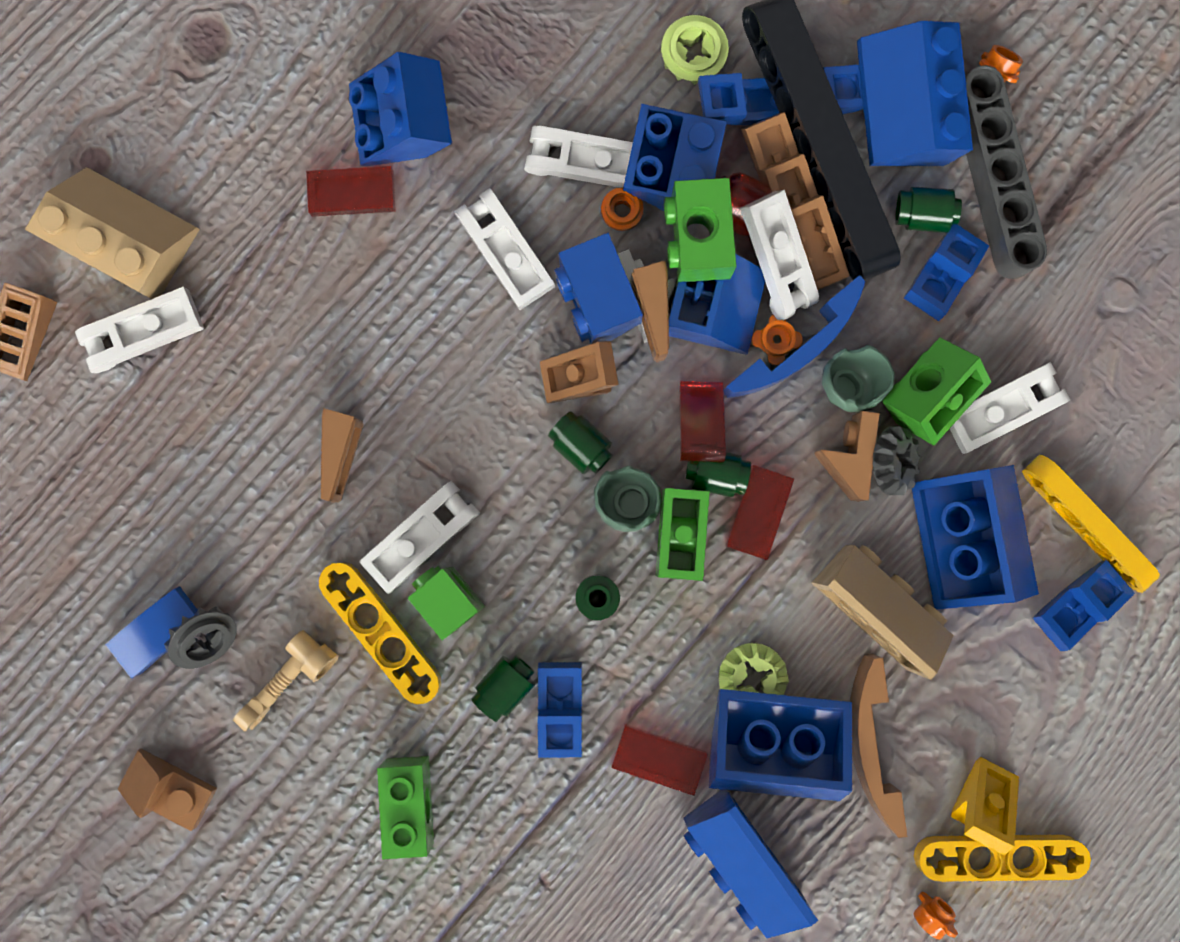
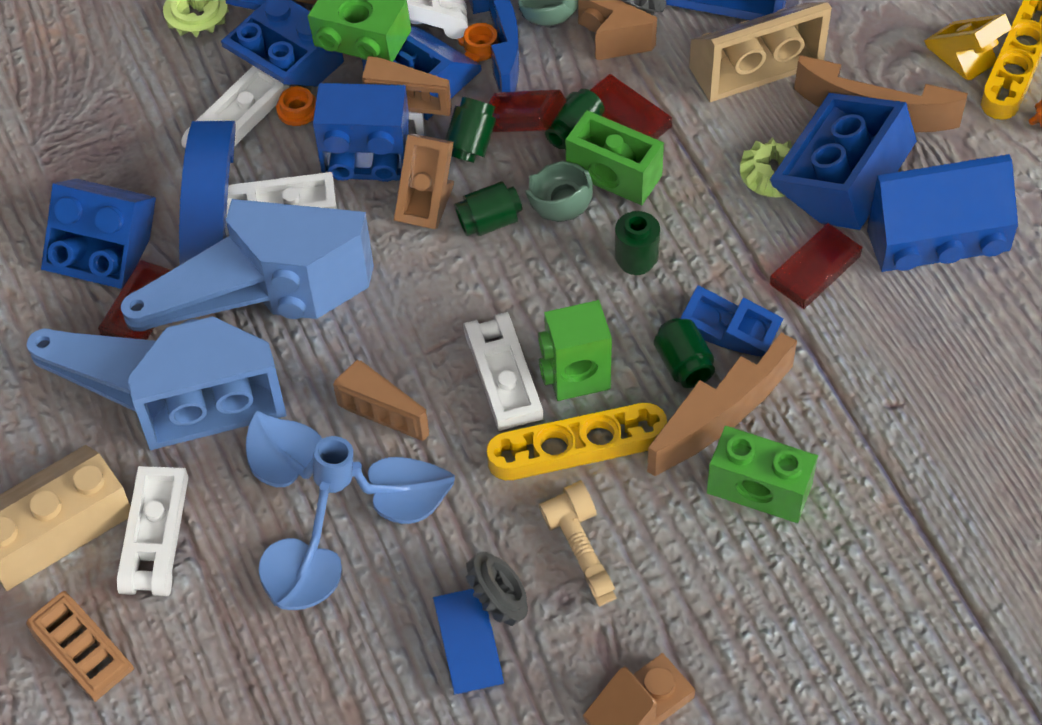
camera: 60 degrees left, 30 degrees down
(256, 263) = (181, 386): none -> medium blue slope
(270, 514) = (280, 451): none -> medium blue plant
(414, 274) = (275, 254): none -> medium blue slope
(448, 736) = (708, 410): none -> medium nougat slope
(477, 183) = (205, 186): none -> blue slope
(657, 385) = (471, 129): none -> dark green brick

